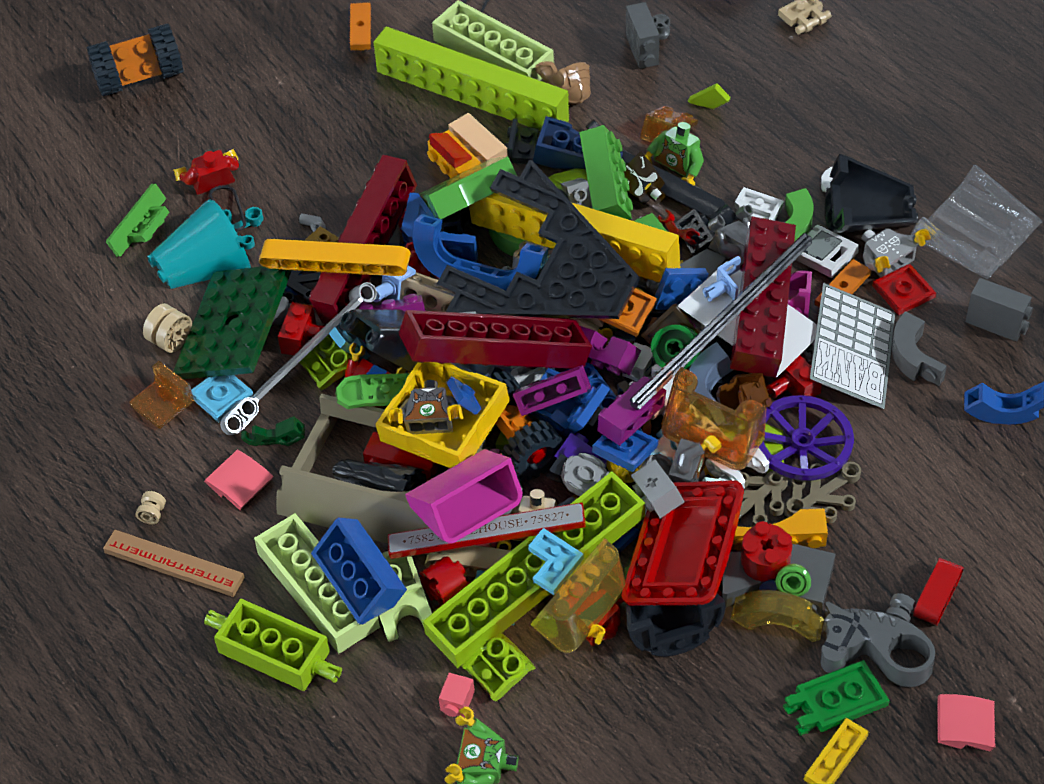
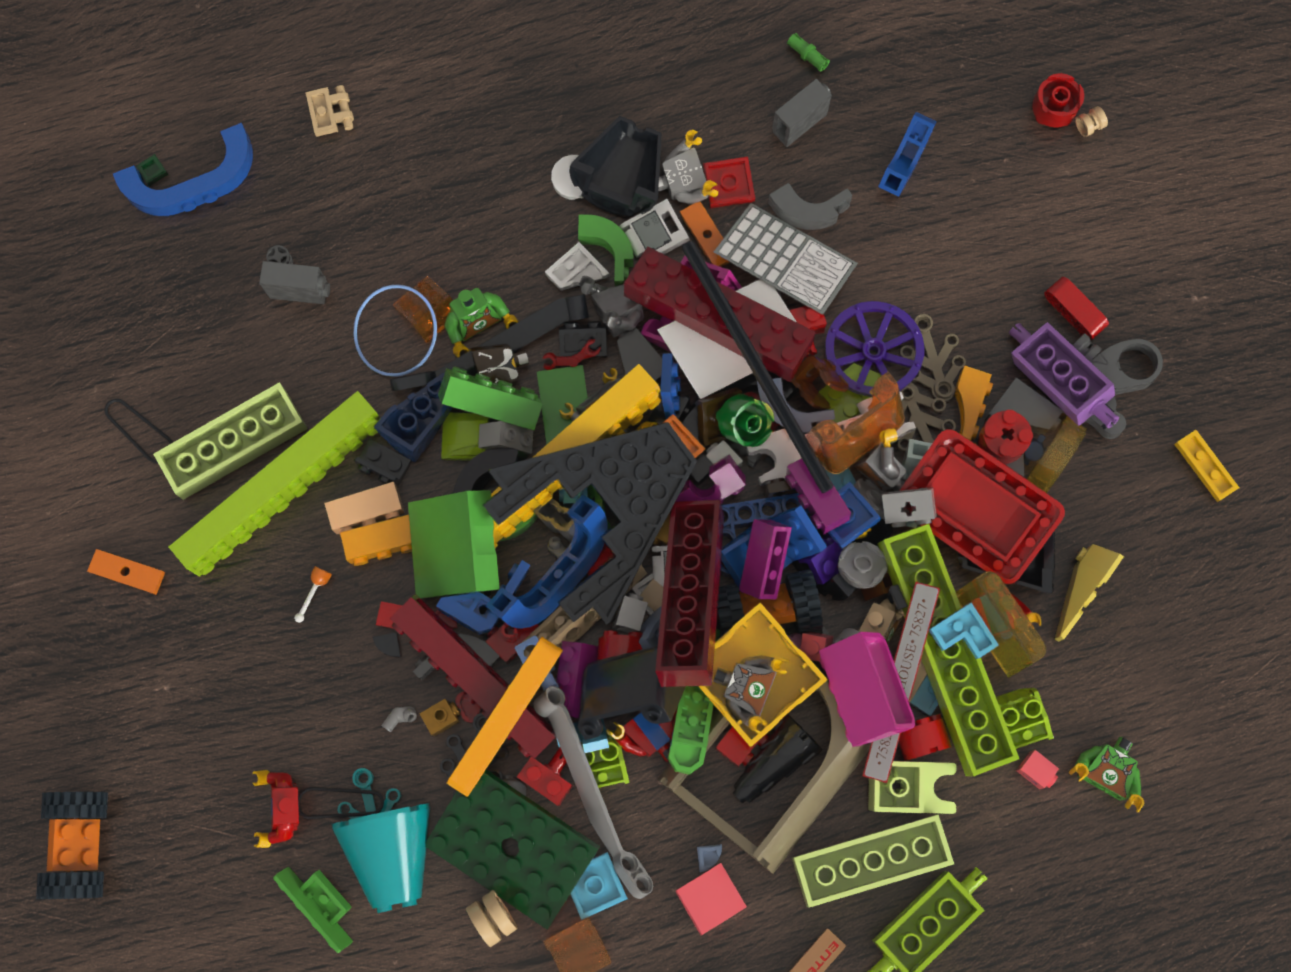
camera: 70 degrees left, 25 degrees up
(274, 465) = (708, 856): none -> sand blue tile
(285, 433) = (672, 839): dark green piece -> none
(358, 570) = (894, 818): blue slope -> none
(408, 137) = (319, 578): none -> hinge
(449, 149) = (373, 541): red slope -> none
(464, 395) = (752, 647): blue plate -> none
(572, 78) = (327, 384): medium nougat head -> none
(634, 89) = (434, 330): none -> light blue piece
(662, 681) = (1093, 569): none -> light yellow wedge
(710, 97) = (406, 252): lime tile -> none
(724, 282) = (695, 345): light blue bracket -> none
(793, 580) = (1042, 425): bright green brick -> none
(836, 696) = (1150, 440): green tile -> none
(857, 587) = (1063, 374): none -> medium lavender brick
(966, 721) = (1209, 346): coral slope -> none
(979, 224) = (690, 84): clear windscreen -> none

